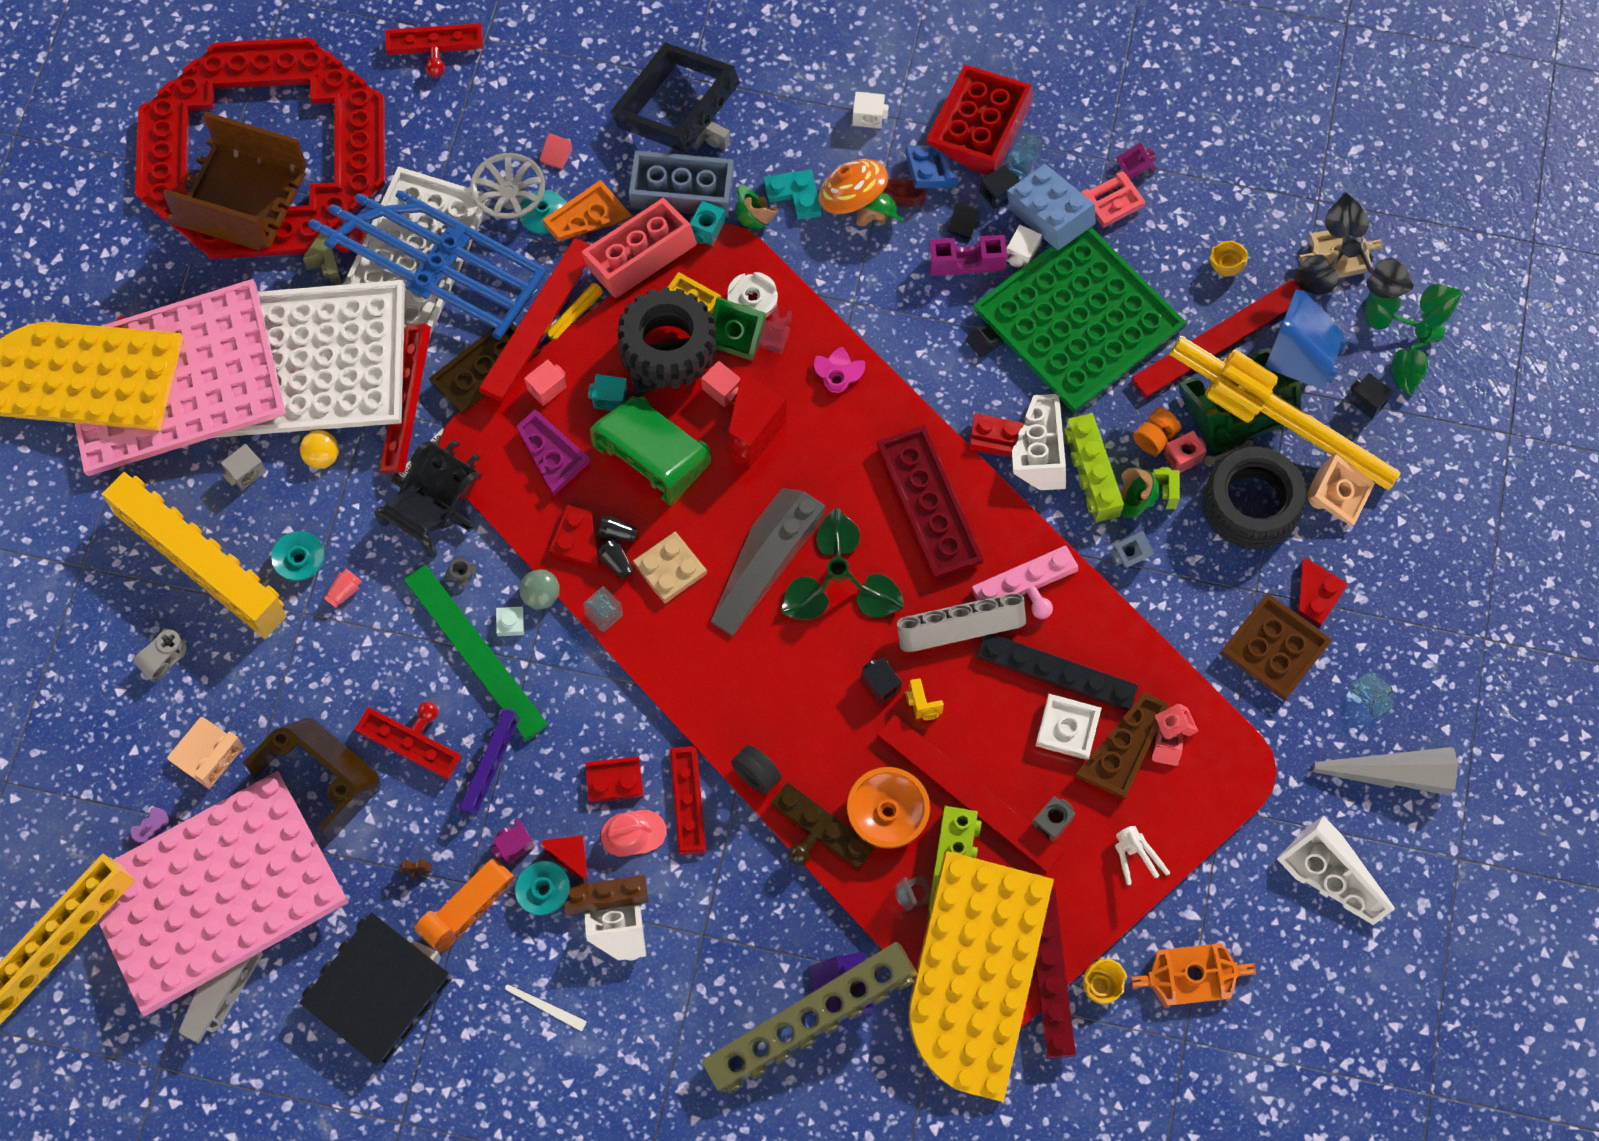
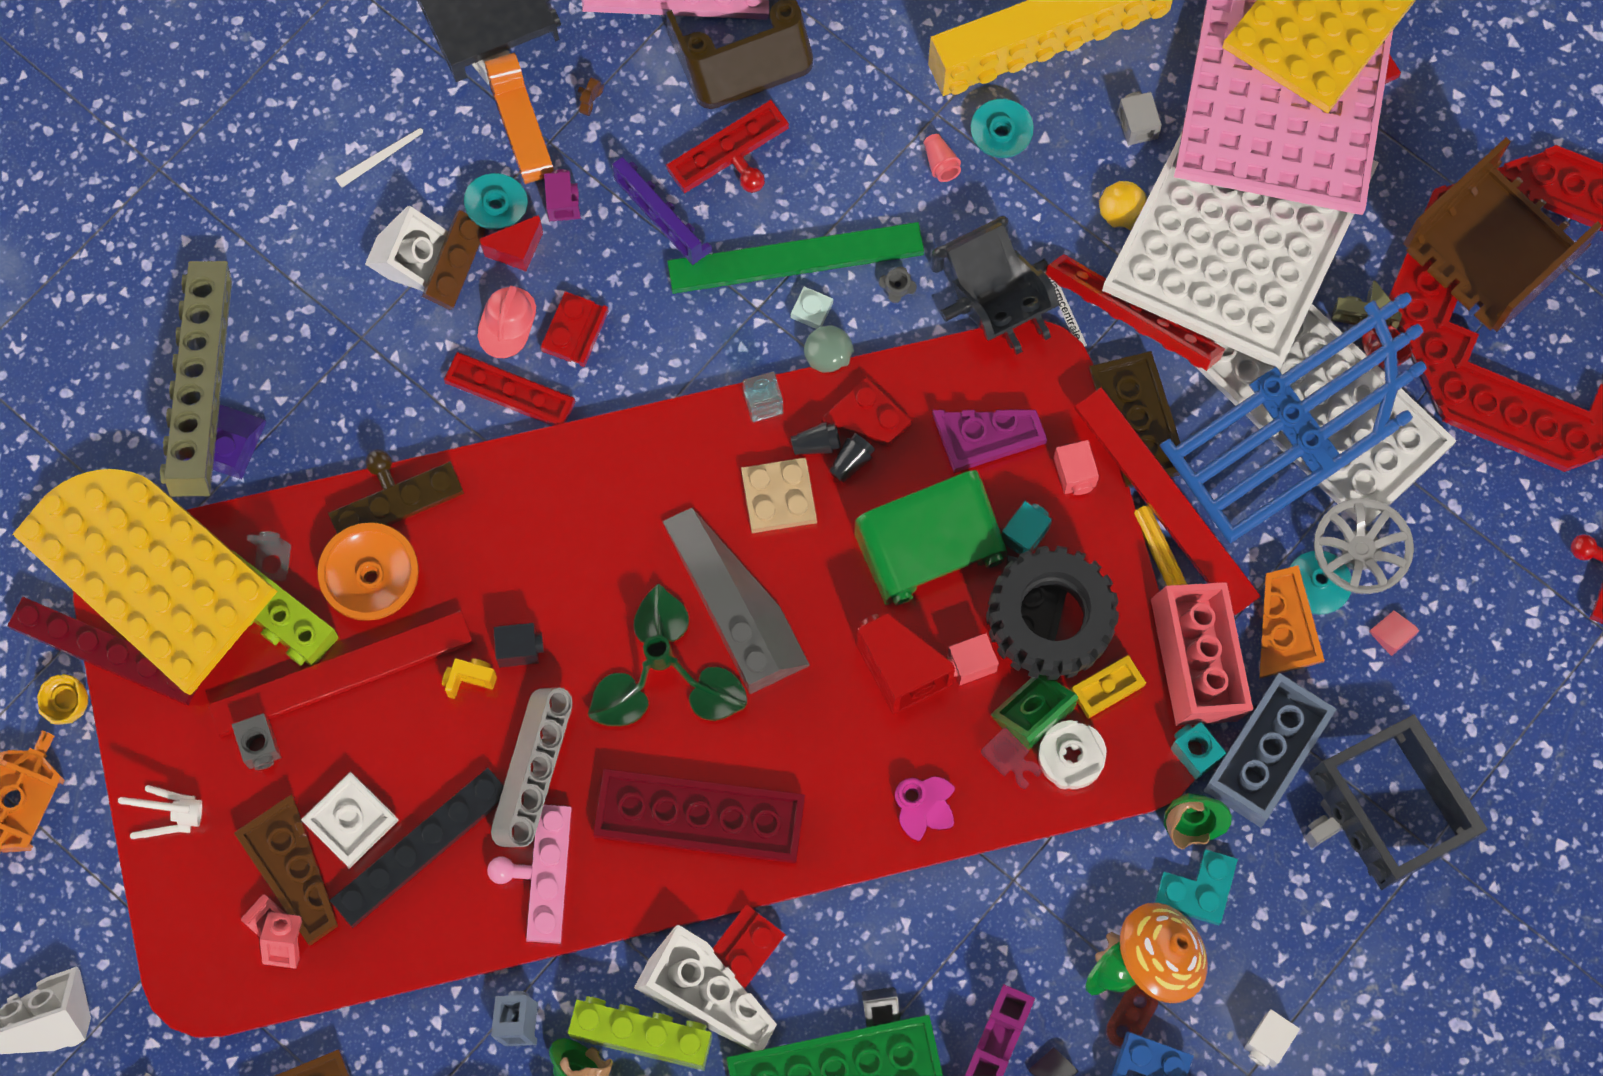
camera: 120 degrees right, 5 degrees up
(756, 769) = (489, 458): black tyre -> none

